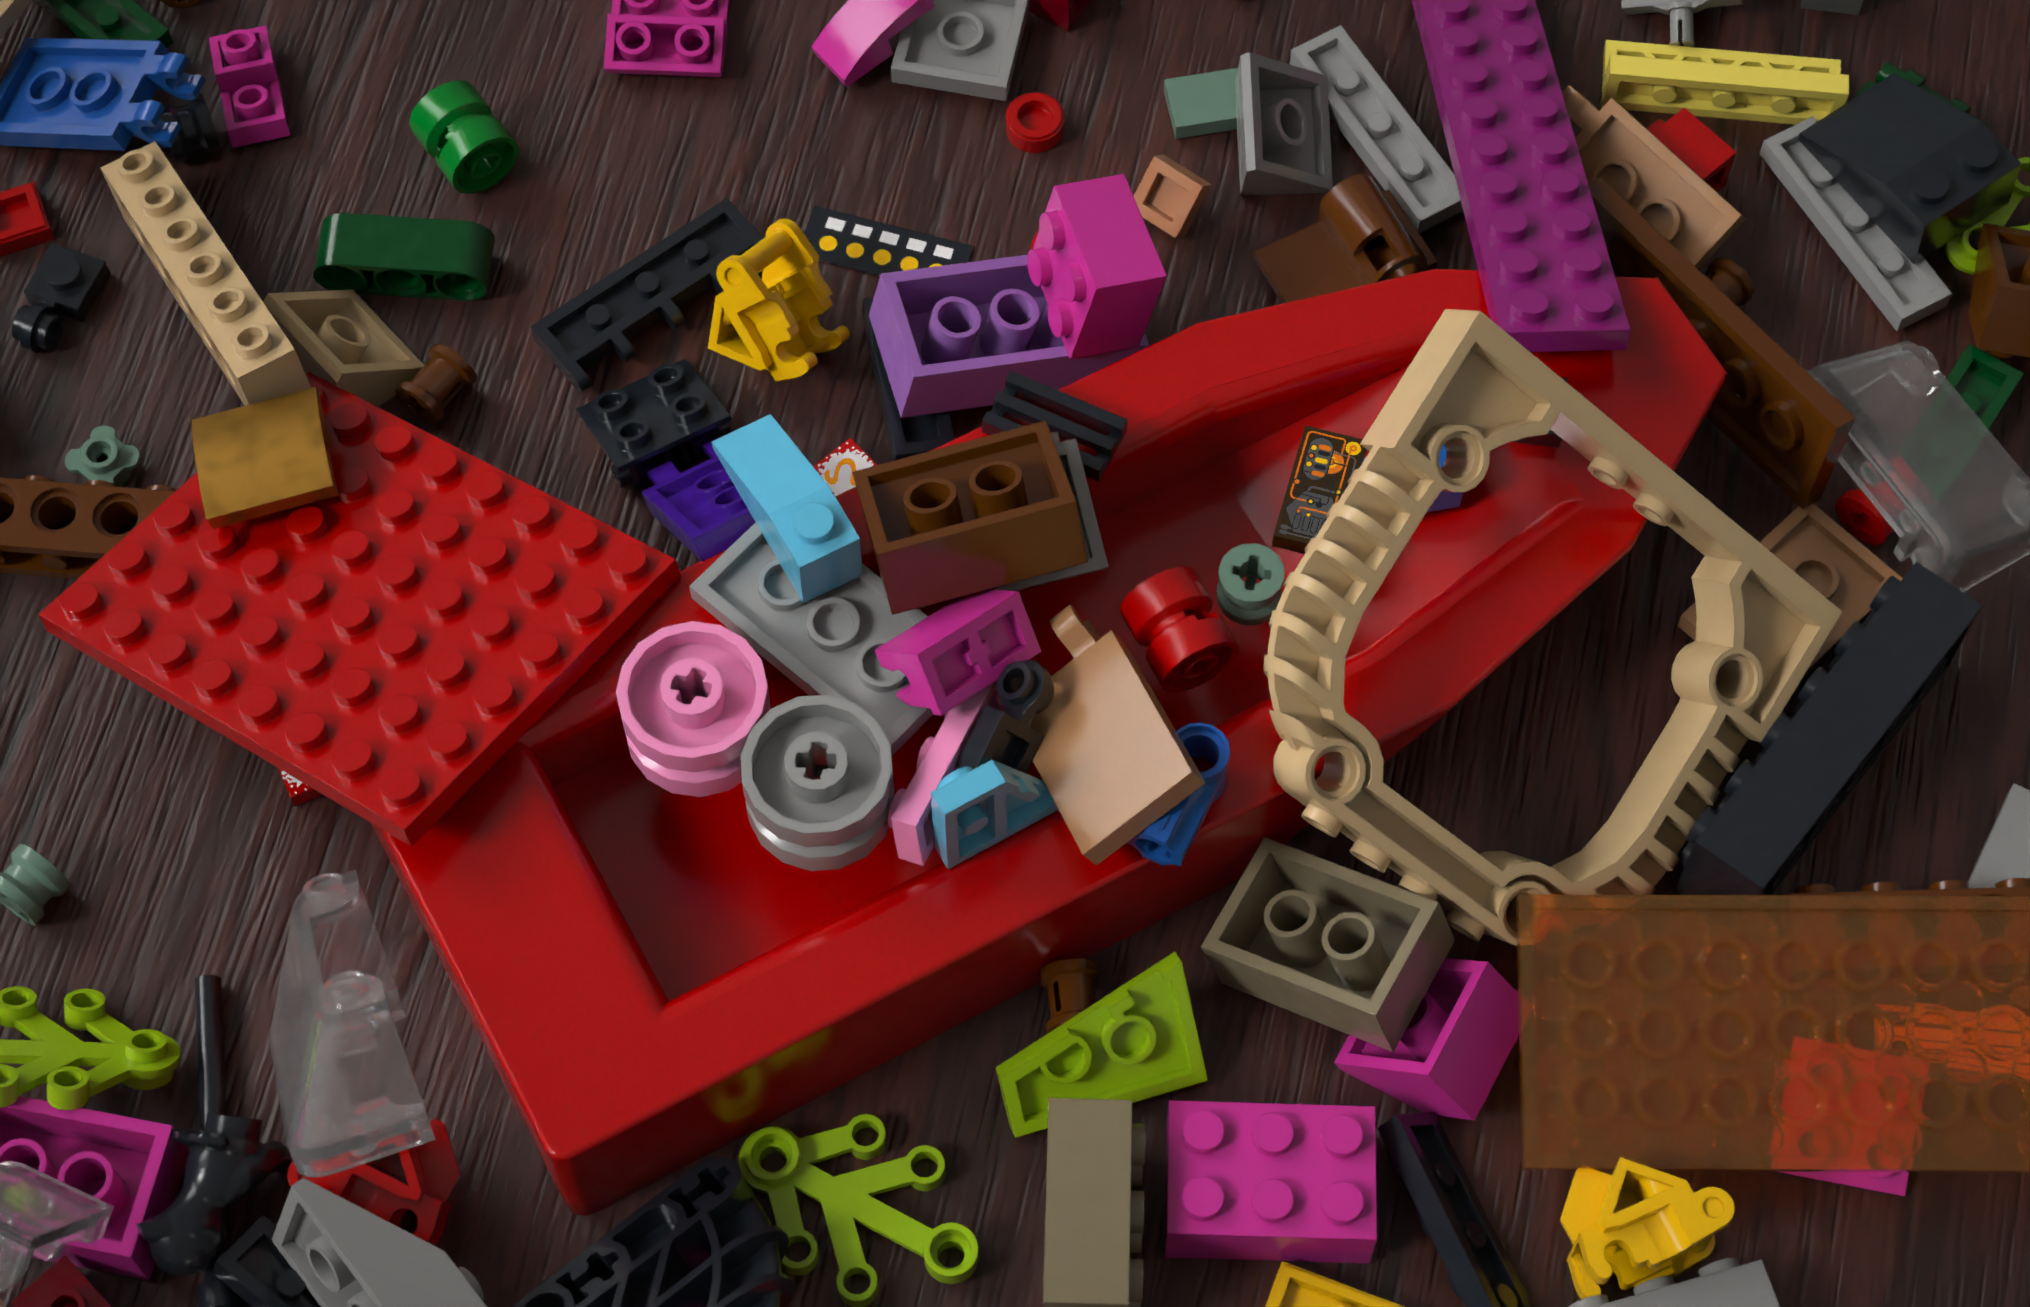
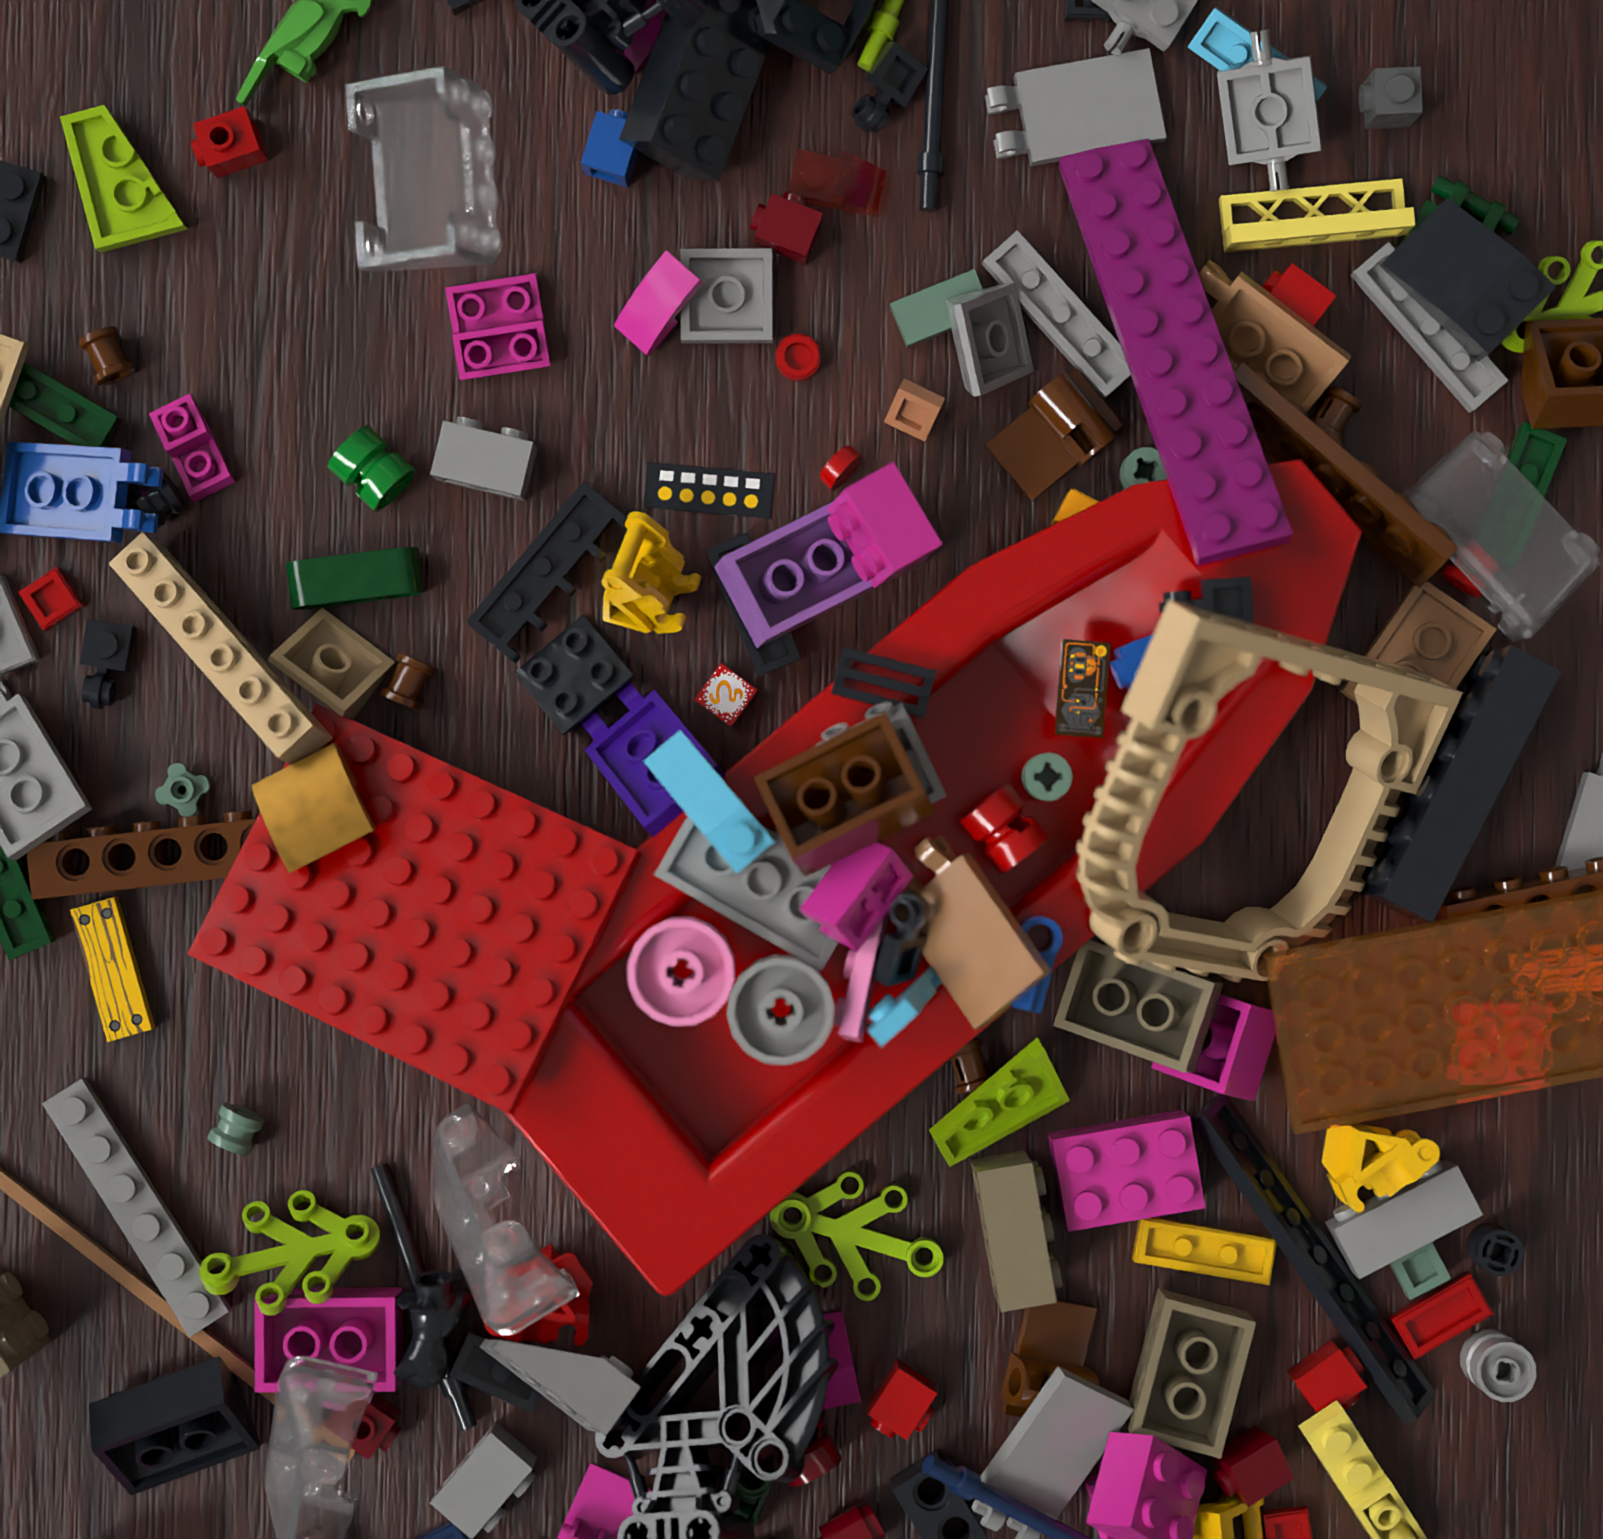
camera: 15 degrees left, 25 degrees up
(608, 156) = (484, 458): none -> light grey brick

